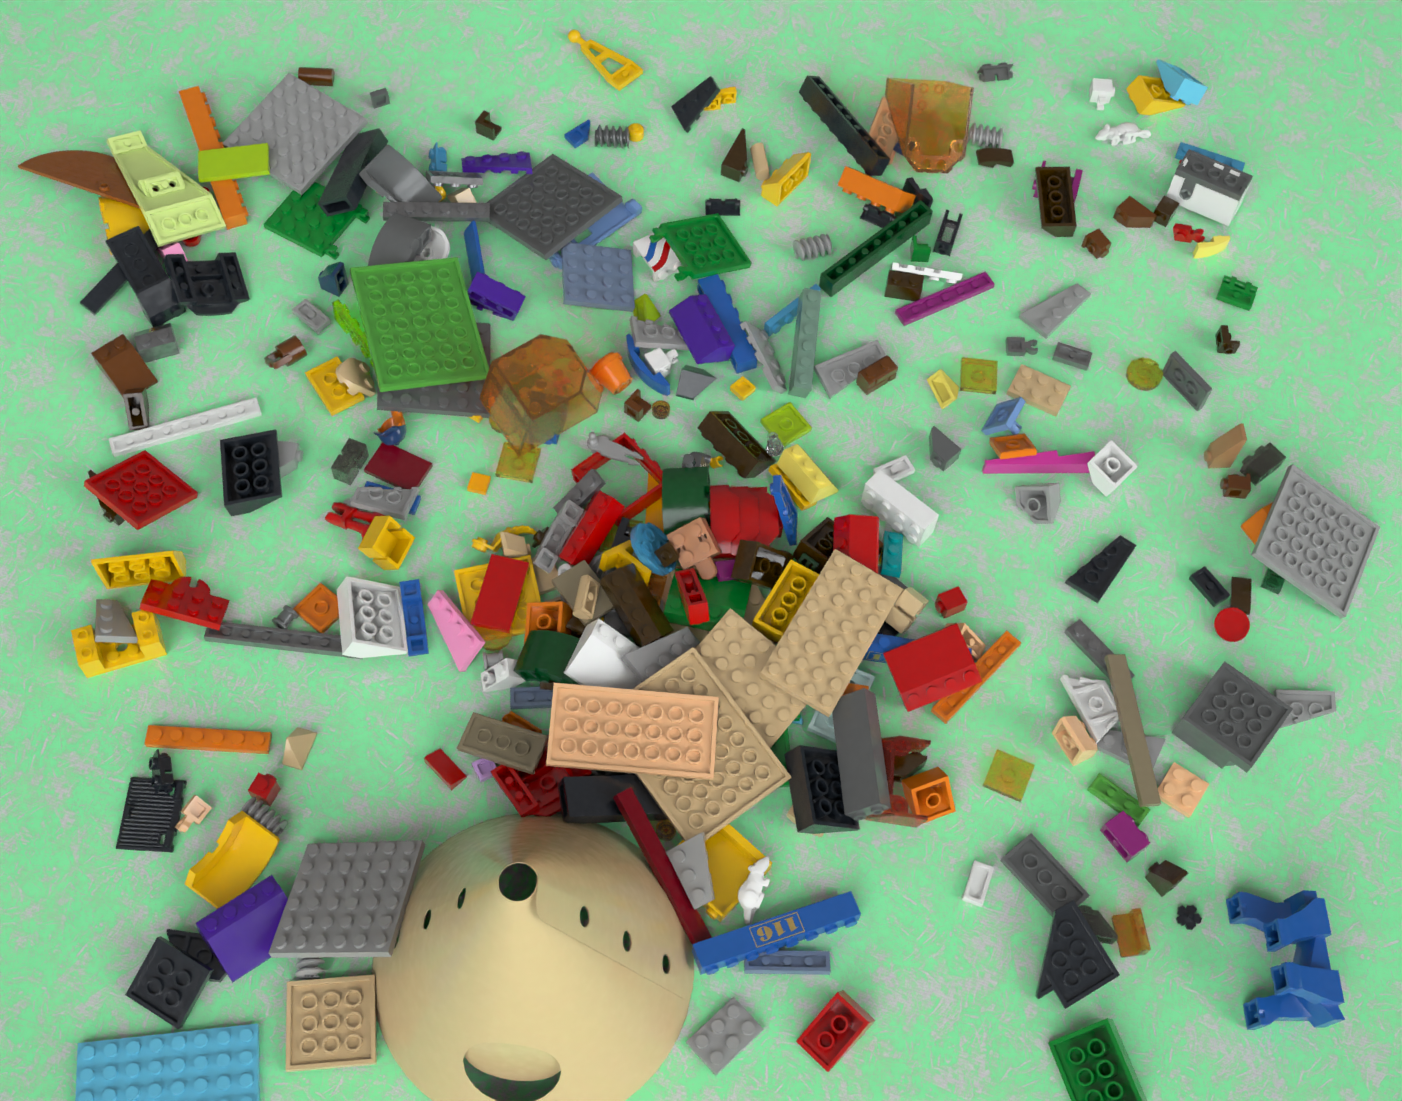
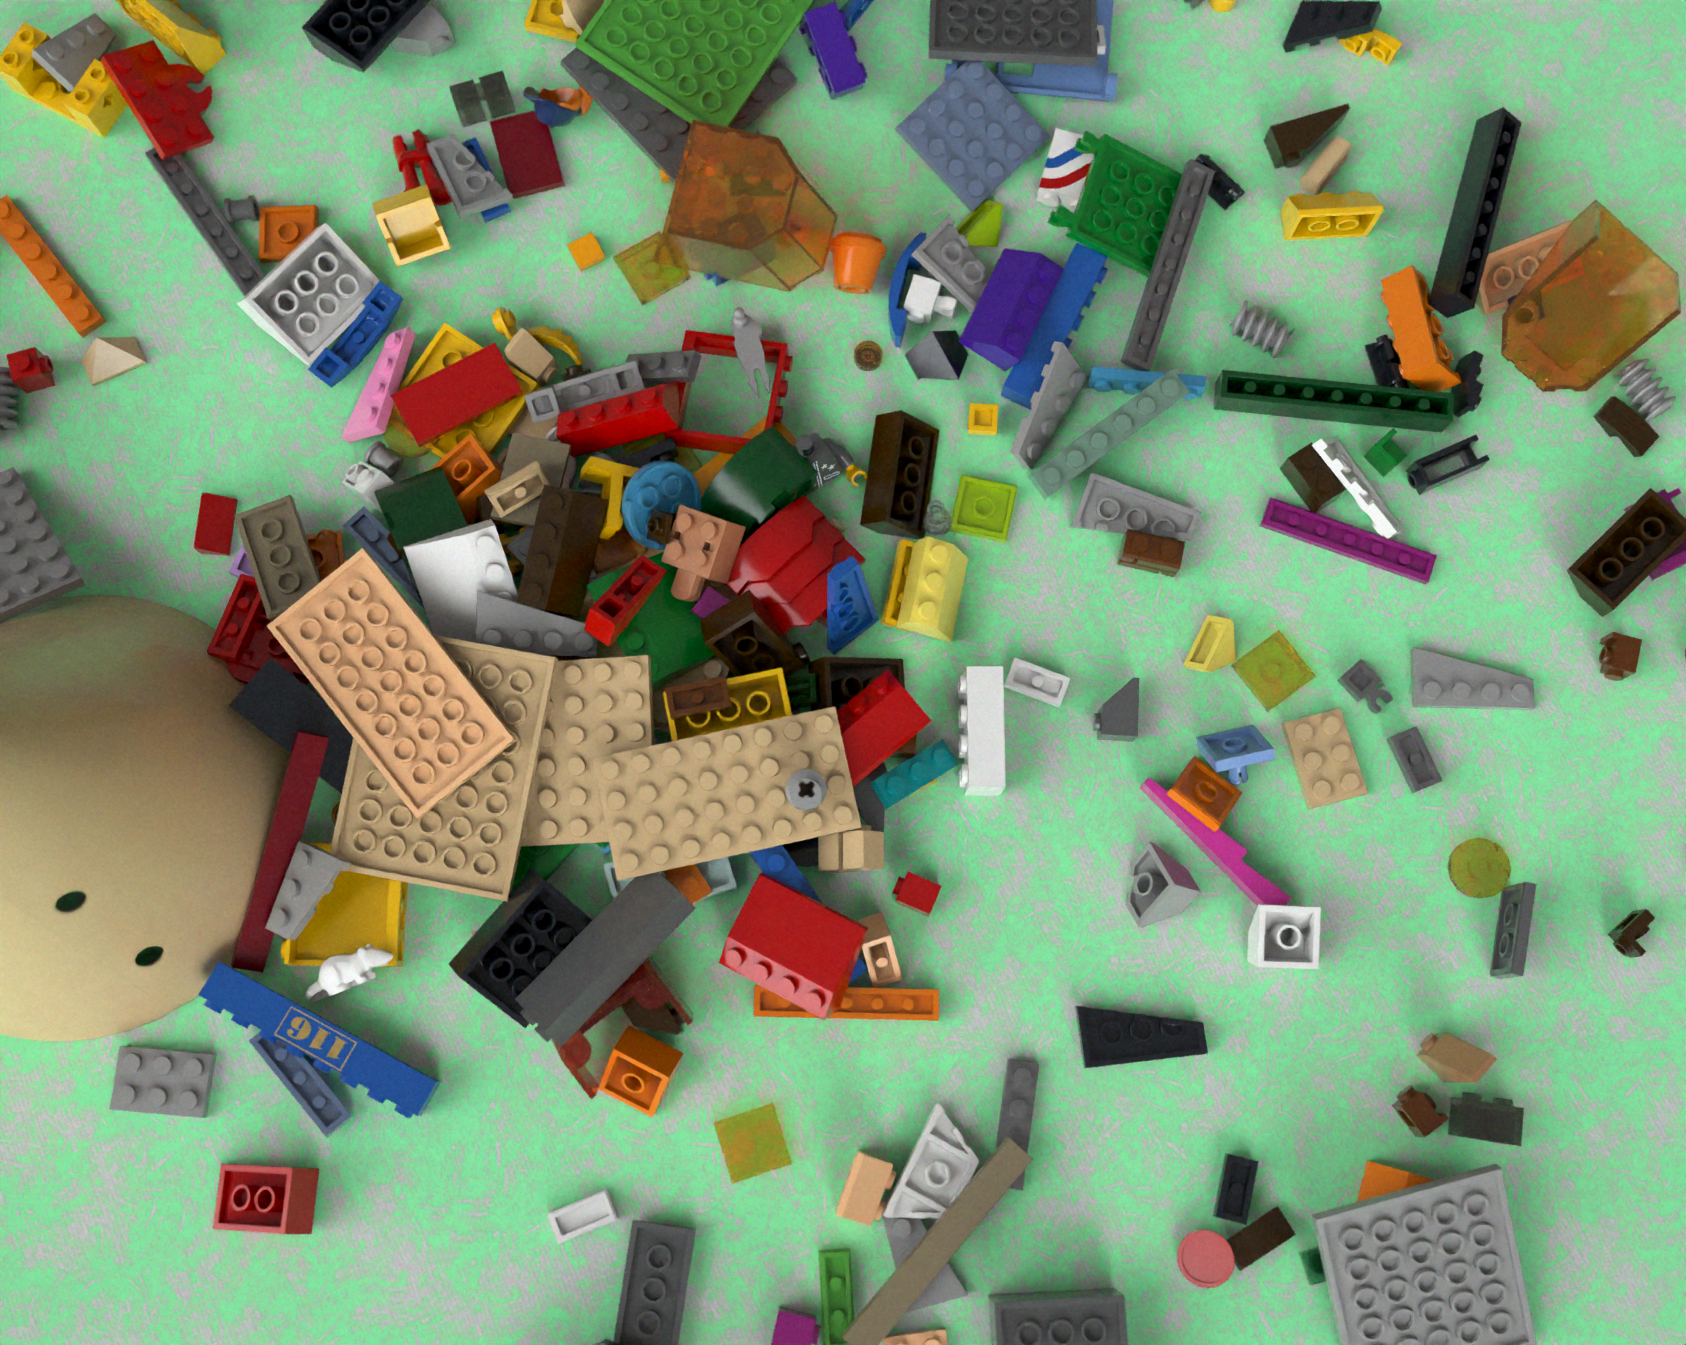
camera: 50 degrees right, 15 degrees up
(636, 406) = (845, 326): reddish brown panel -> none
(747, 255) = (1167, 266): none -> flat silver plate
(773, 604) = (698, 697): none -> reddish brown plate
(869, 587) = (819, 789): none -> light grey piece

